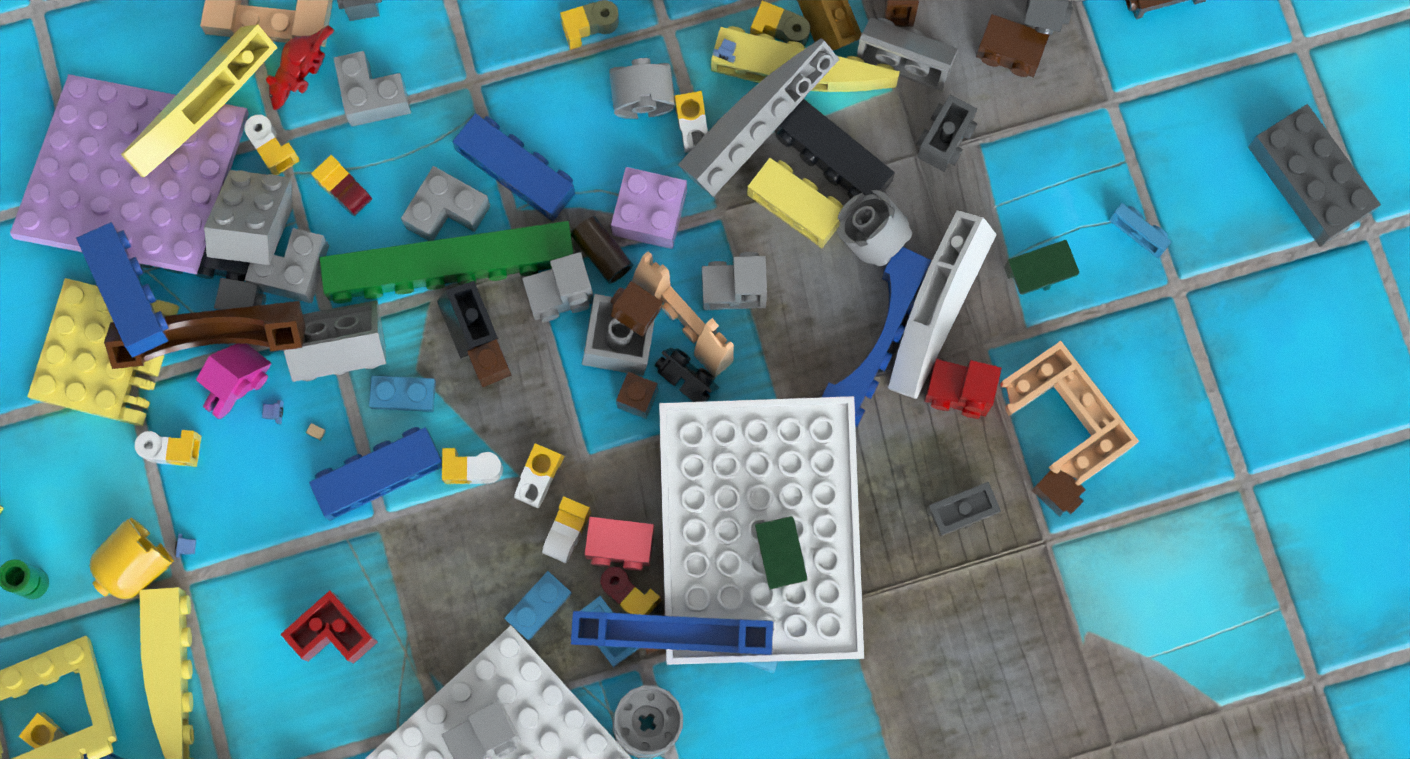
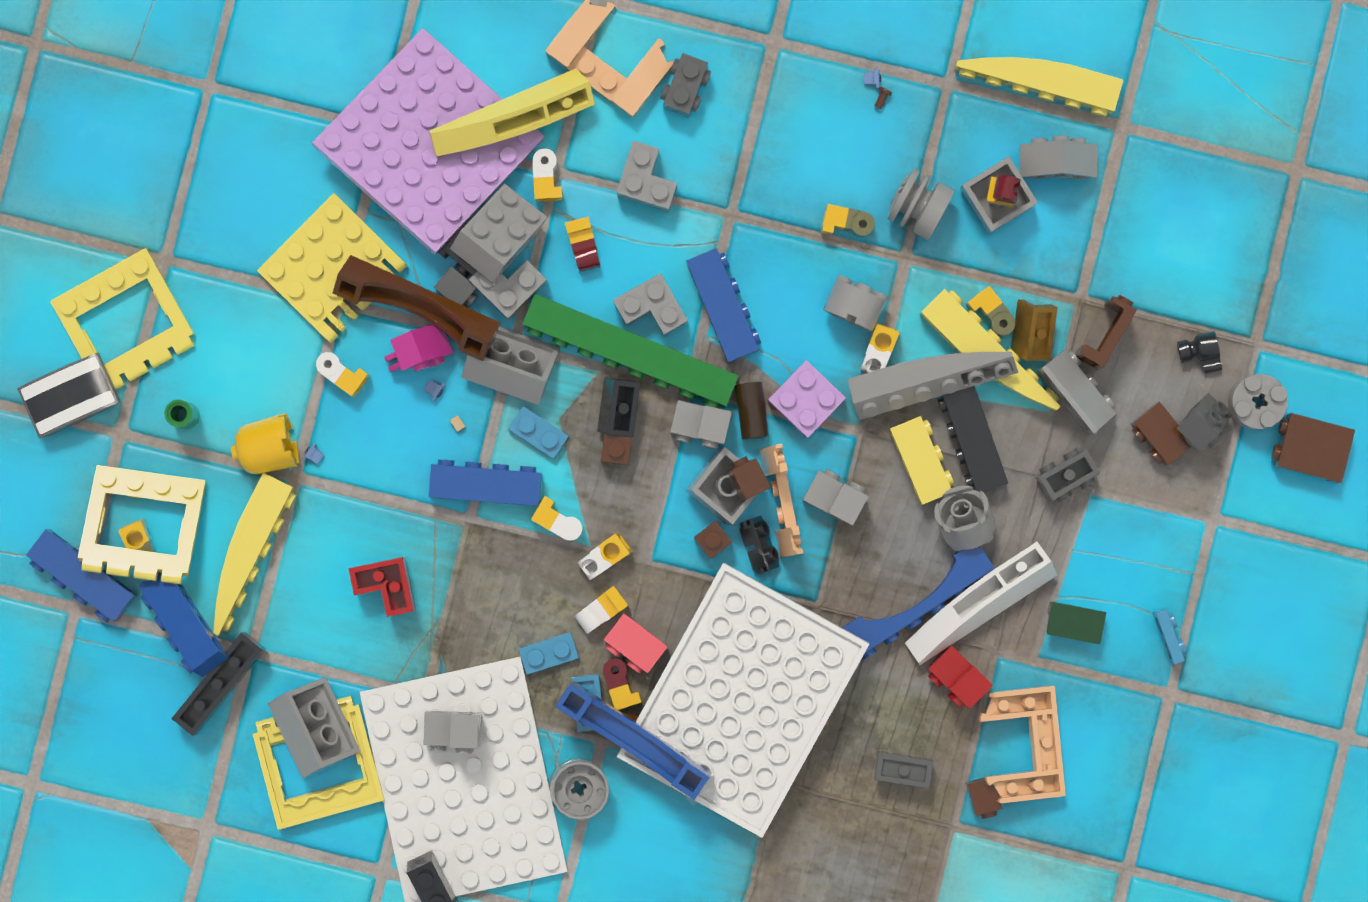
camera: 30 degrees right, 10 degrees up
(122, 289) = (373, 243): blue brick -> none
(298, 58) = (604, 123): red animal -> none
(726, 51) = (936, 312): medium blue piece -> none
(781, 552) = (745, 729): dark green panel -> none
(1314, 175) = (1327, 672): dark grey brick -> none

